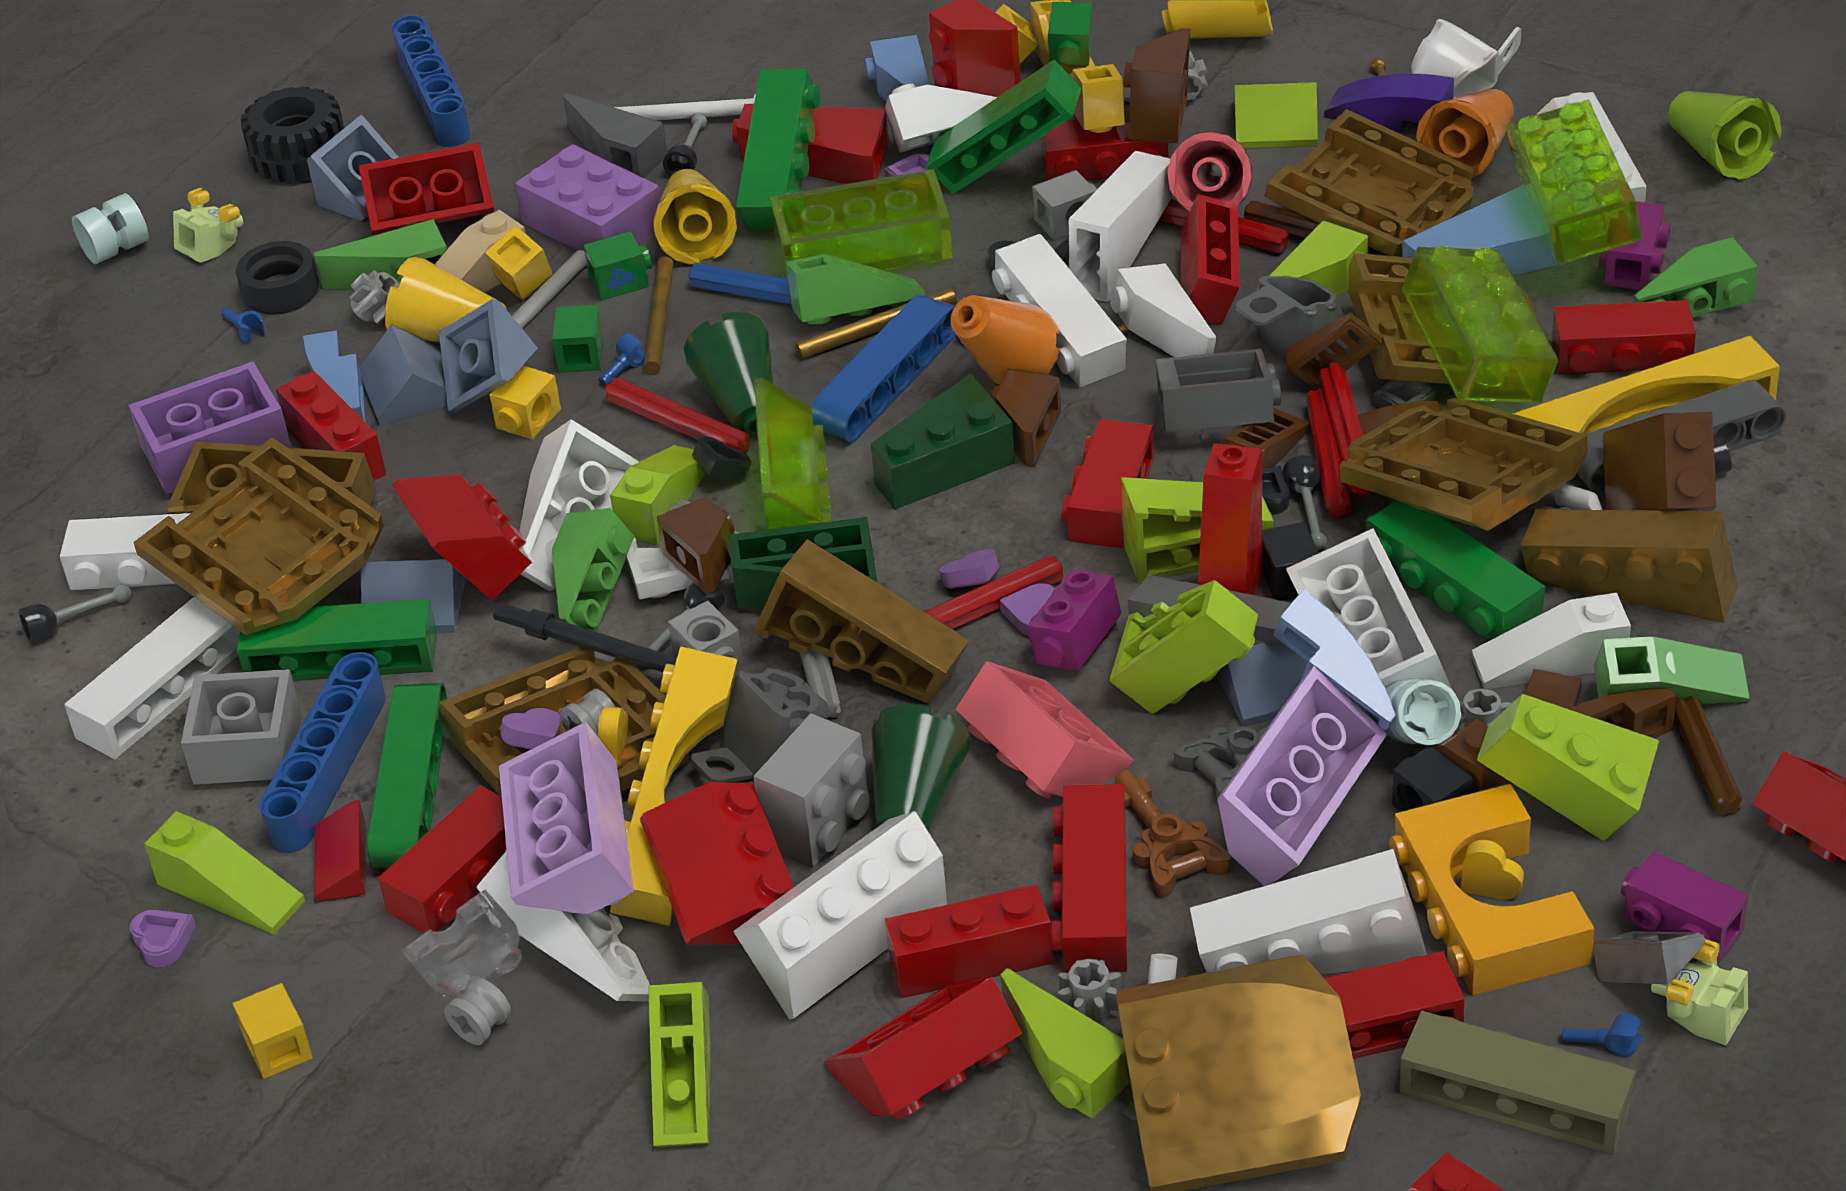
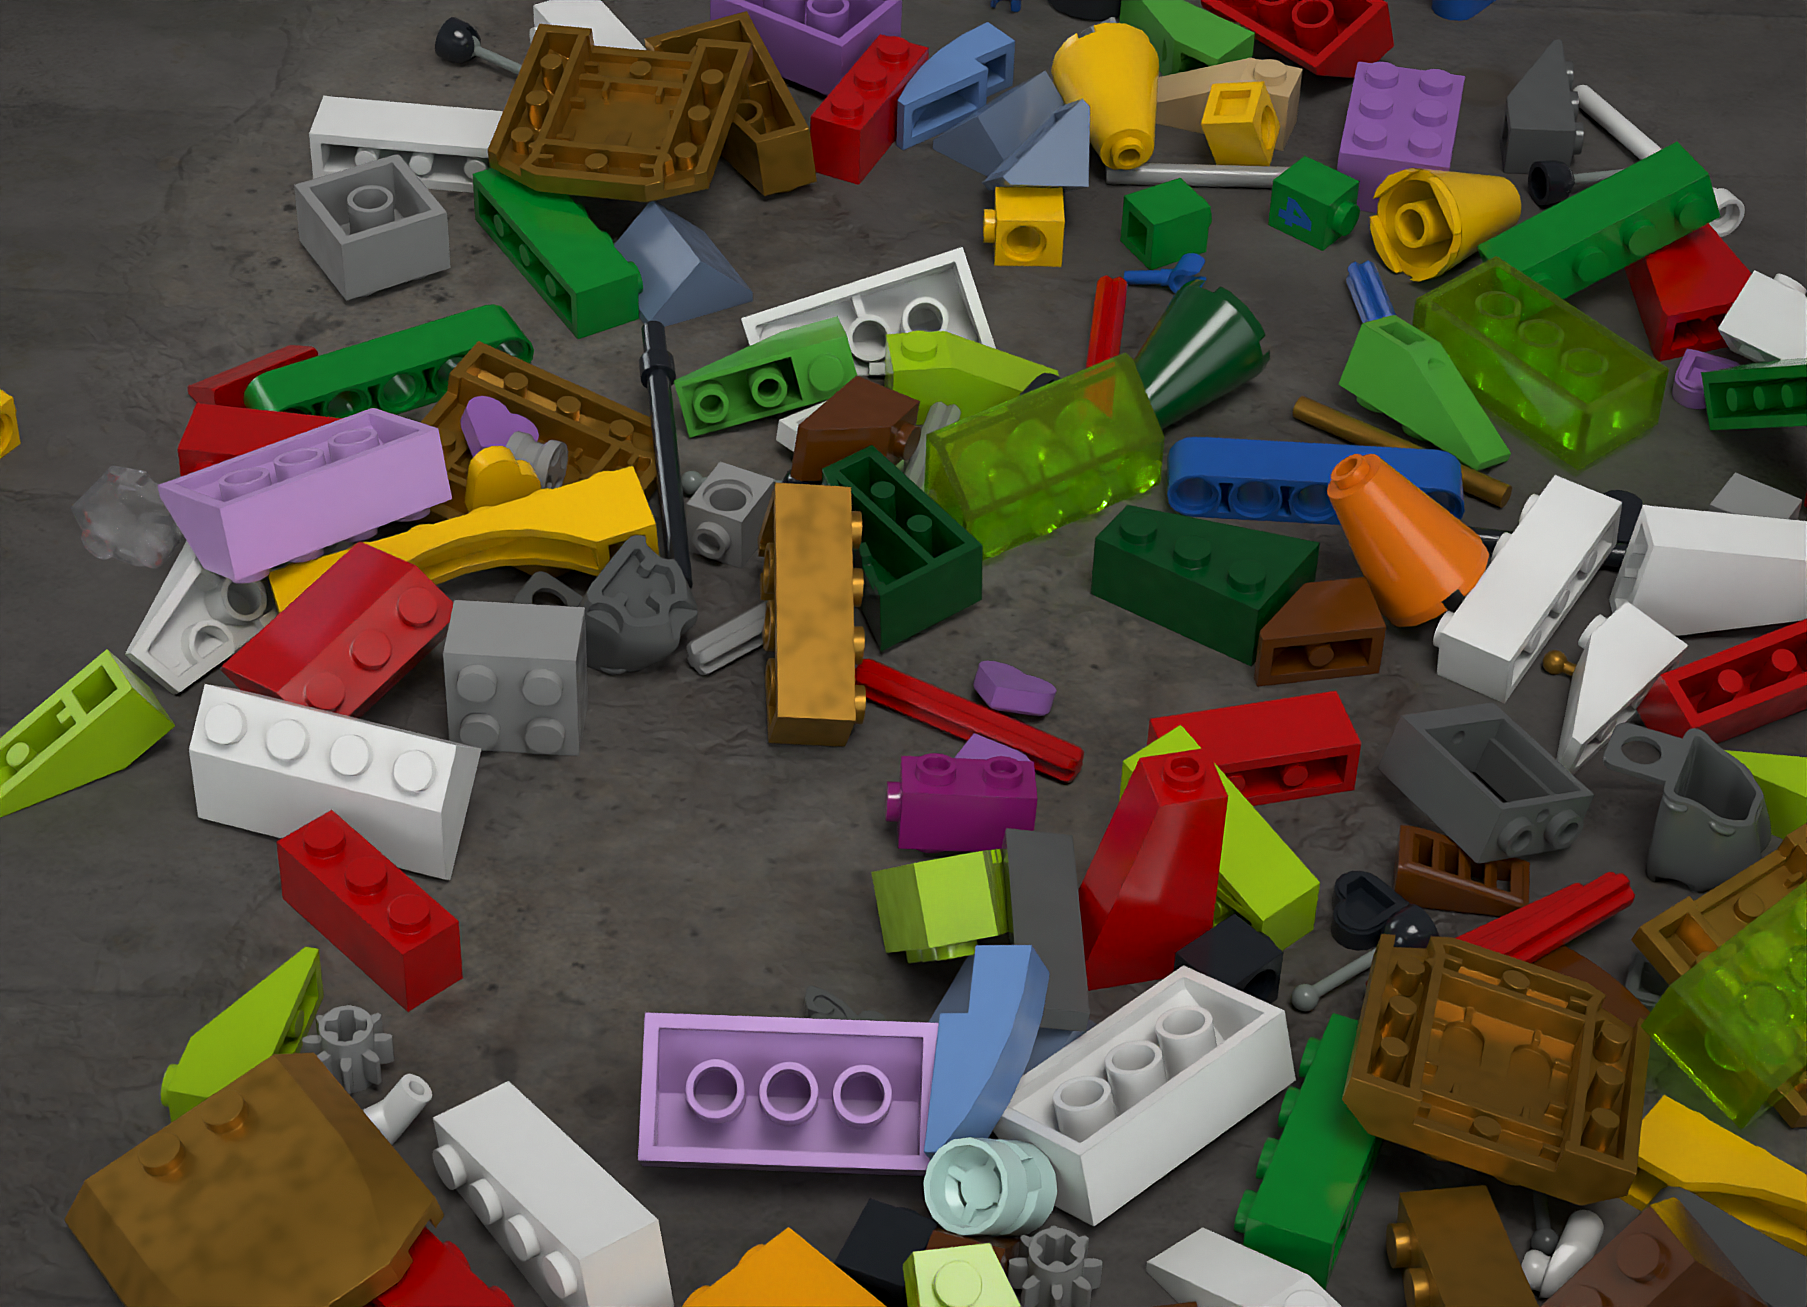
camera: 55 degrees right, 0 degrees up
(162, 935) = (76, 307): medium lavender tile -> none
(219, 874) = (169, 304): lime slope -> none
(322, 752) = (379, 299): blue beam -> none
(466, 529) = (748, 246): red slope -> none
(477, 1011) = (67, 561): light grey wheel -> none
(658, 315) = (1292, 266): pearl gold bar -> none
(915, 761) = (601, 759): dark green cone -> none
(926, 1047) = (177, 932): red slope -> none
(1039, 731) = (764, 852): coral slope -> none
(1093, 876) = (540, 986): red brick -> none
(1170, 837) = (607, 1049): dark orange piece -> none
(1301, 354) = (1647, 859): reddish brown slope -> none

